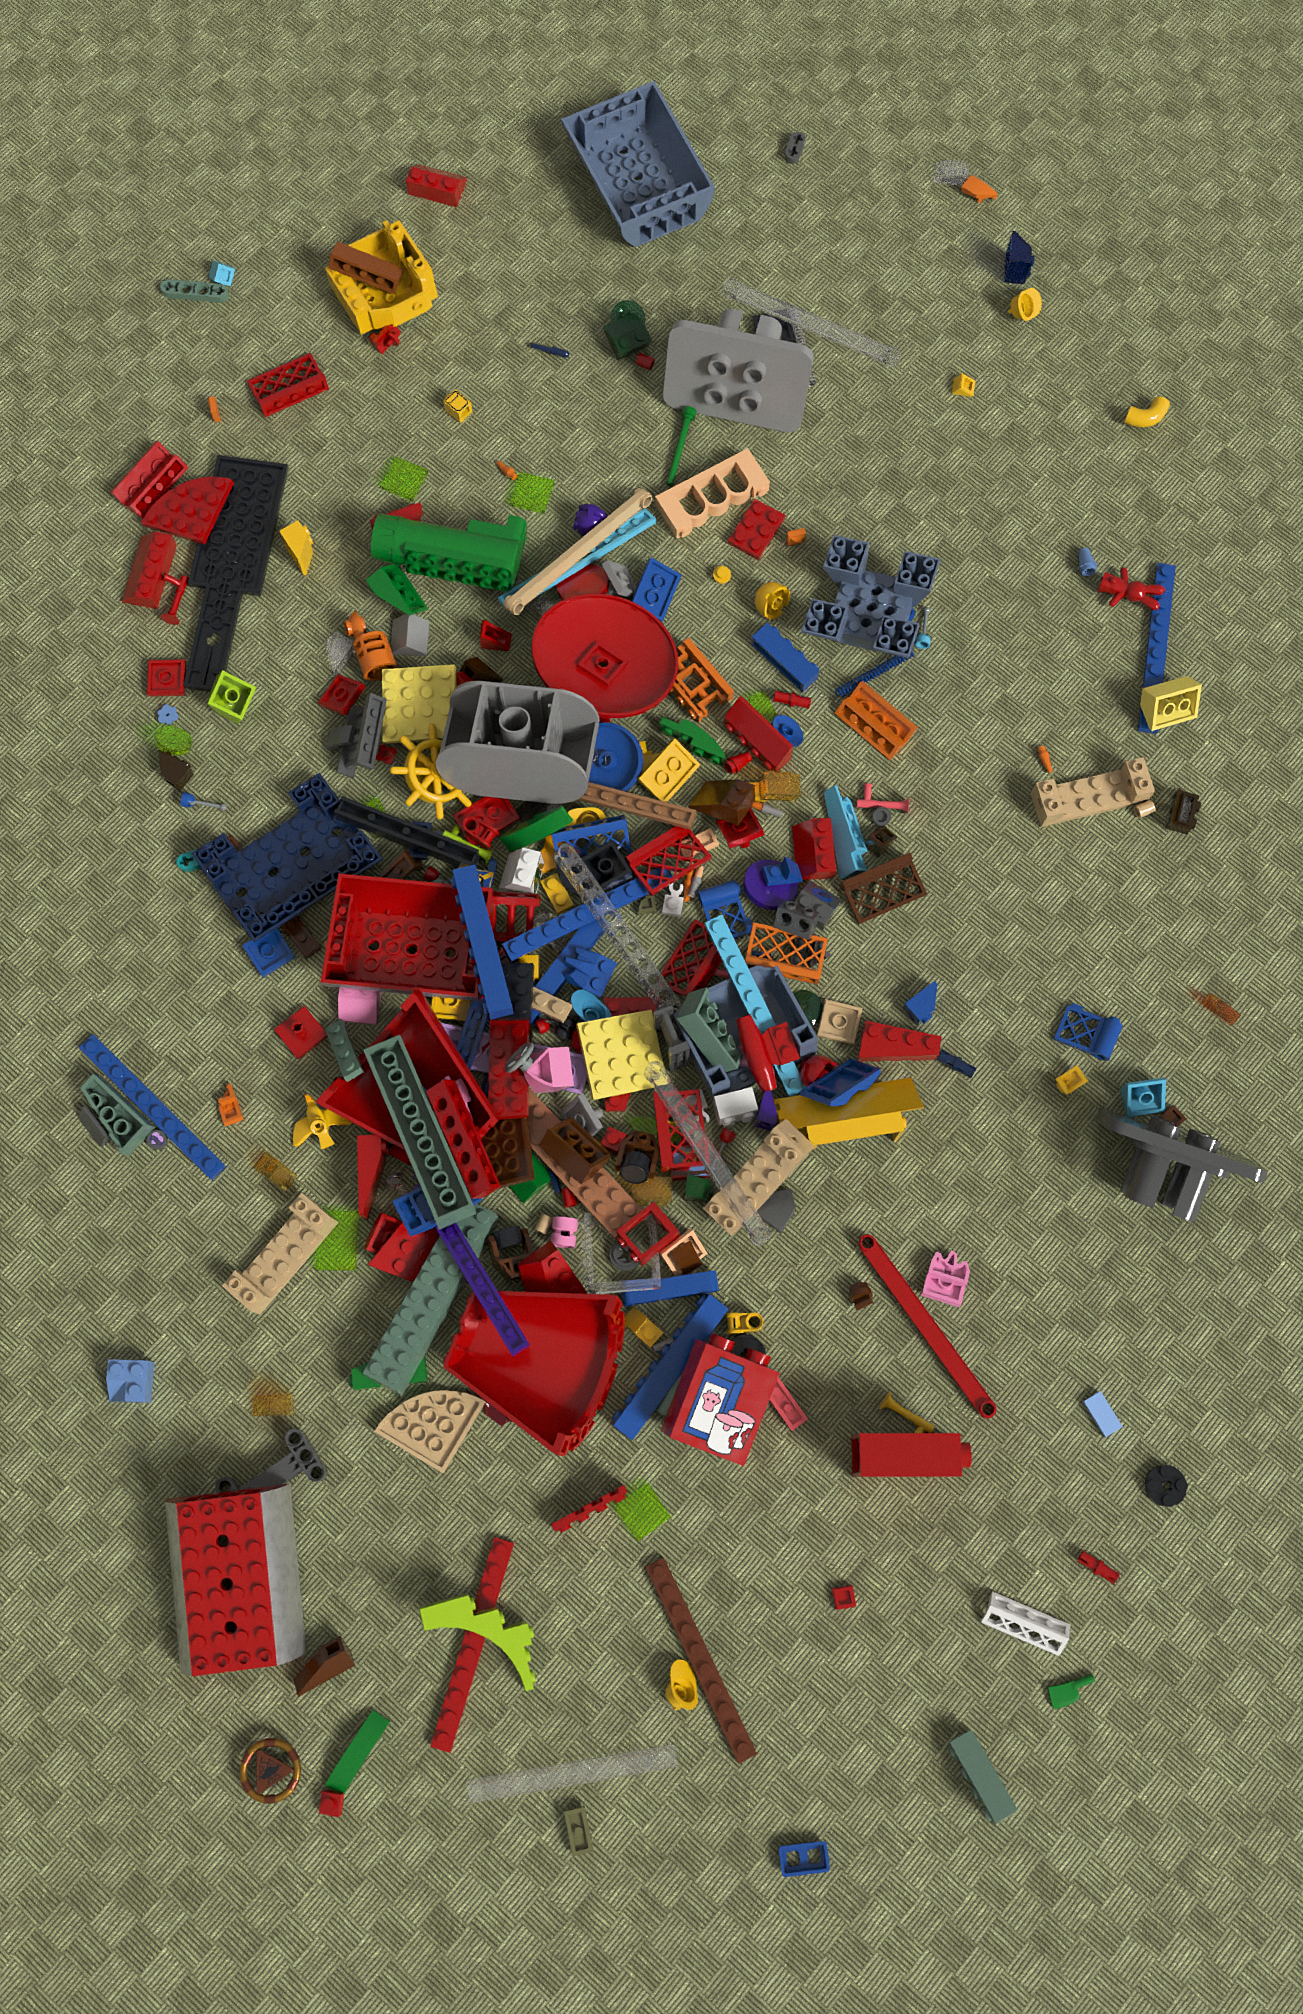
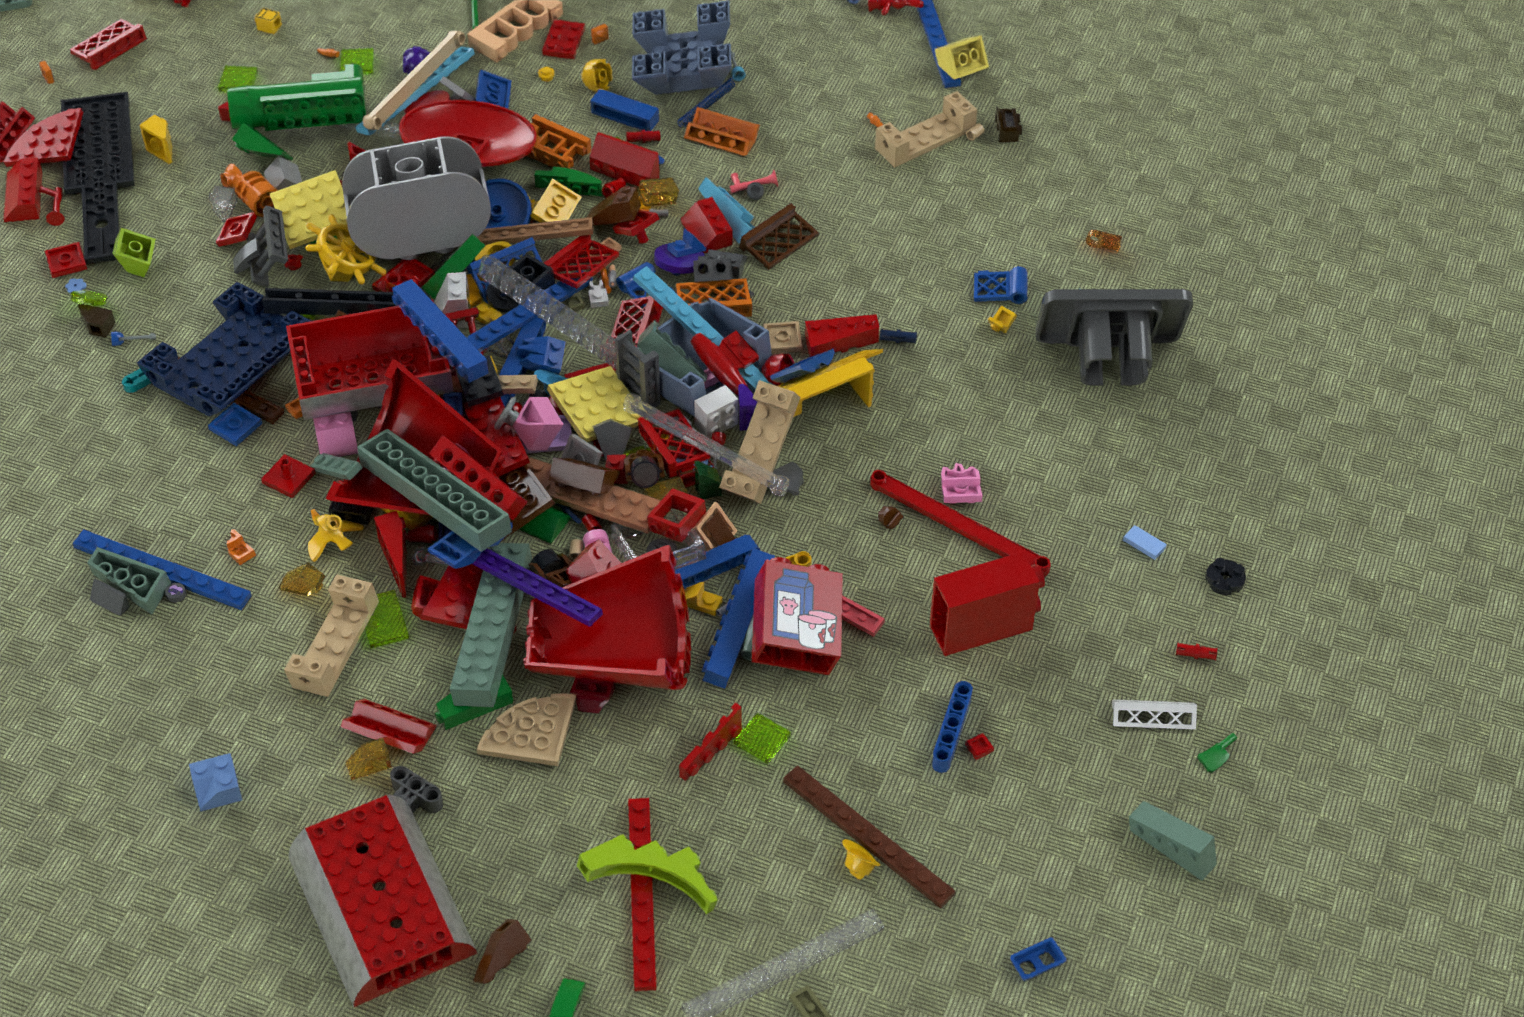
camera: 20 degrees left, 25 degrees down
(303, 1372) = (390, 724): none -> red slope
(622, 1103) = (612, 437): none -> dark grey slope
(816, 1574) = (952, 734): none -> blue beam
(880, 840) = (761, 208): dark brown slope -> none
(922, 1004) = (848, 303): blue slope -> none

